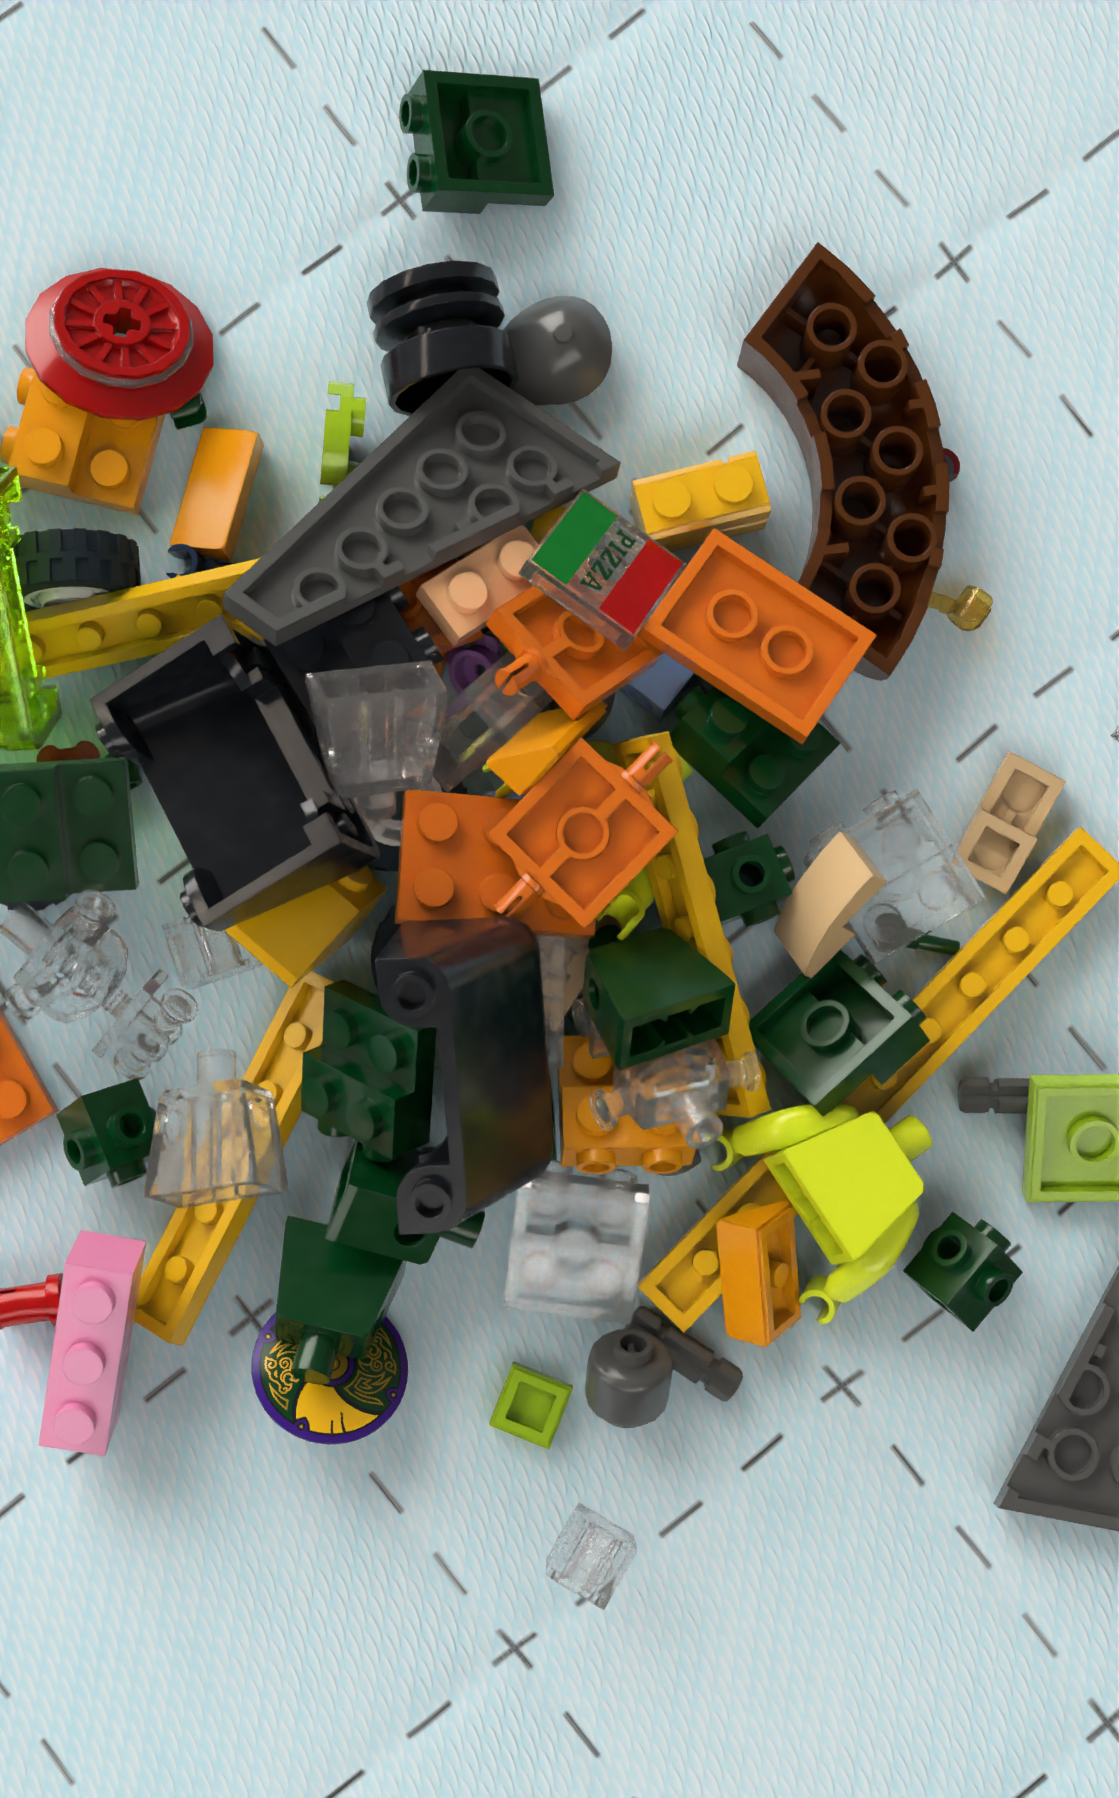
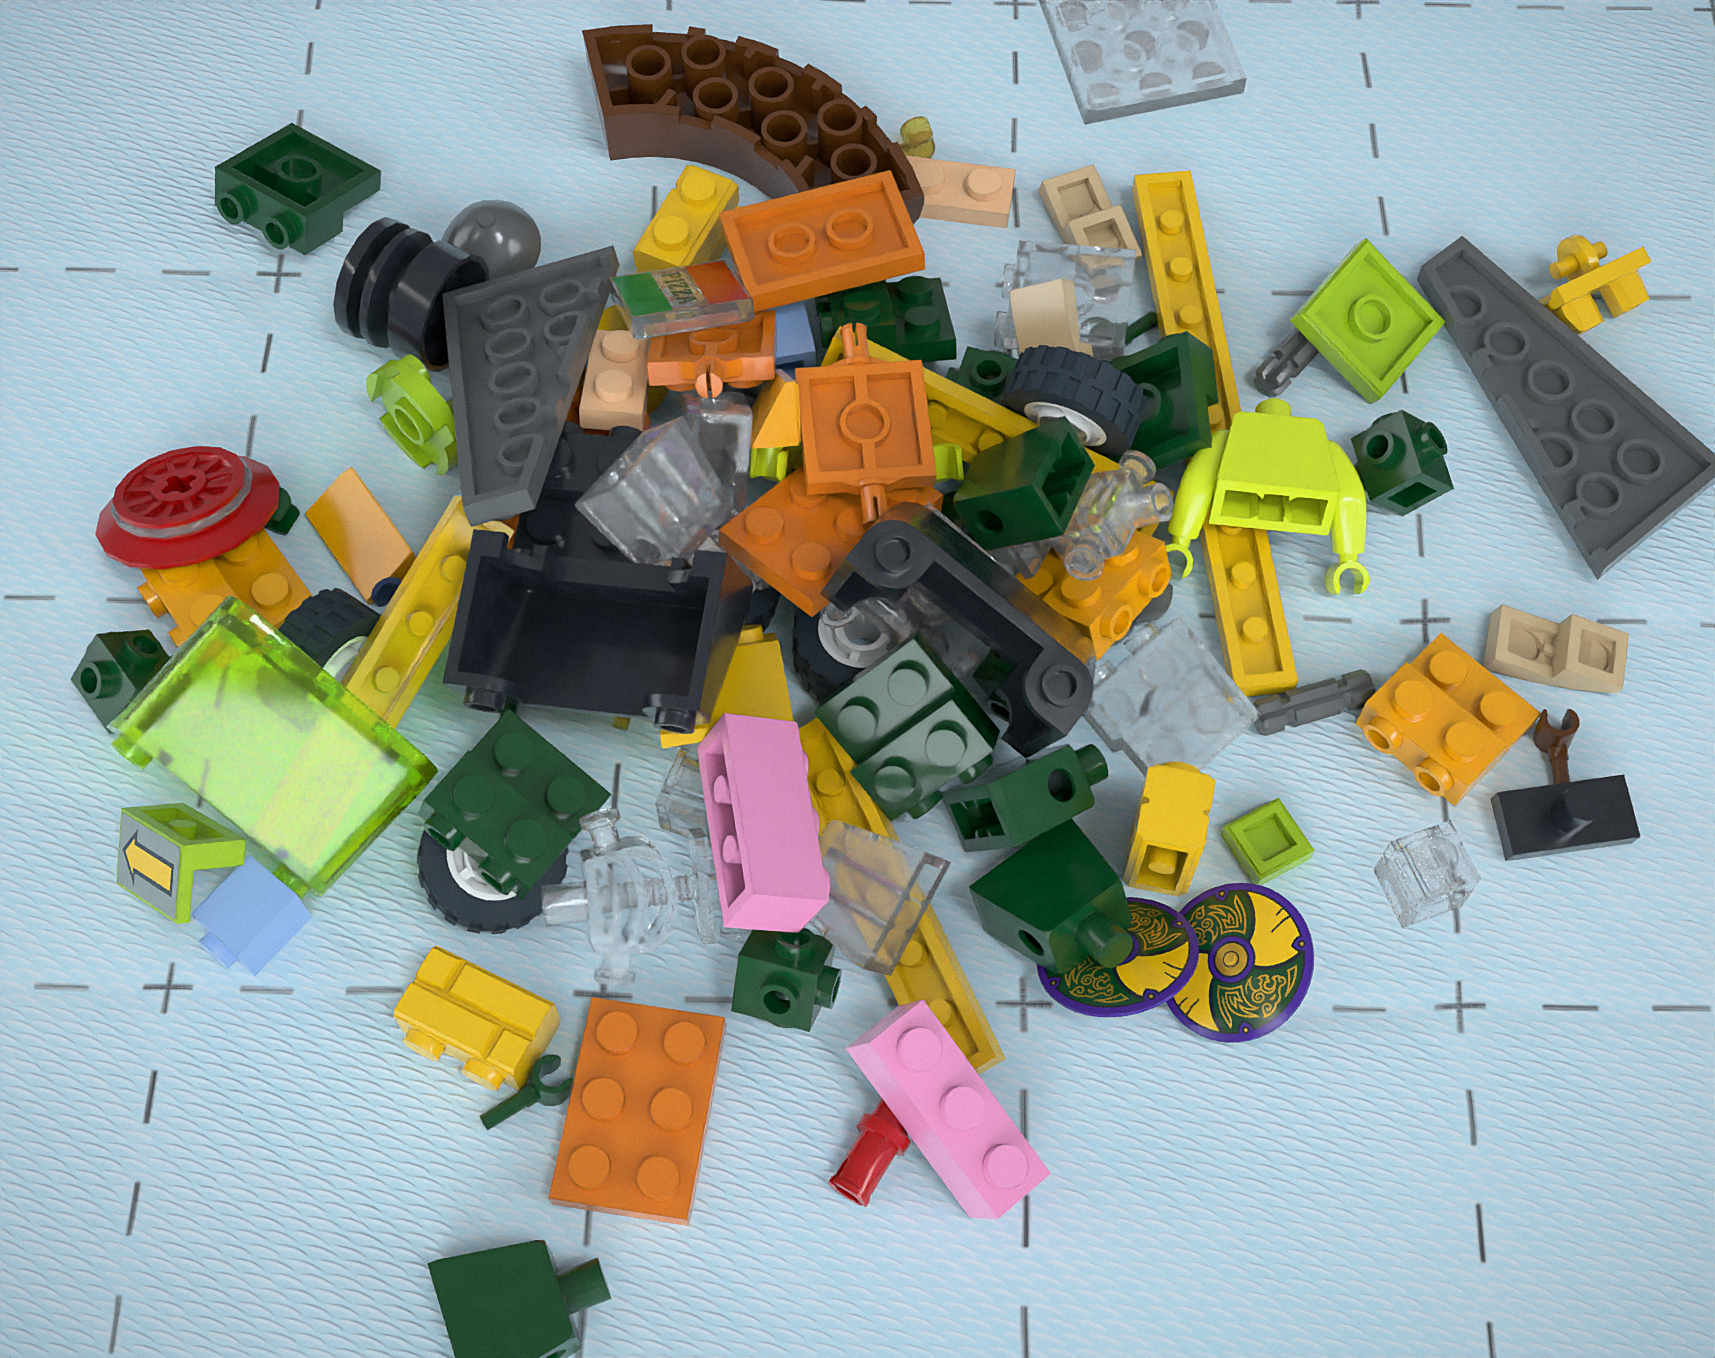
camera: 45 degrees left, 20 degrees down
(187, 1033) = (762, 824): none -> bright pink brick
(405, 1471) = (1249, 964): none -> shield
(456, 1334) = (1169, 828): none -> yellow brick
(628, 1378) = (1303, 741): dark grey head -> none
(740, 1625) = (1565, 817): none -> black tile
(754, 1471) = (1446, 719): none -> light orange plate
(759, 1272) = (1292, 596): light orange slope -> none
(766, 974) = (1091, 393): none -> black wheel
(799, 1579) = (1557, 742): none -> reddish brown hand
(893, 1515) = (1562, 655): none -> tan slope
(948, 685) = (964, 191): none -> light nougat plate

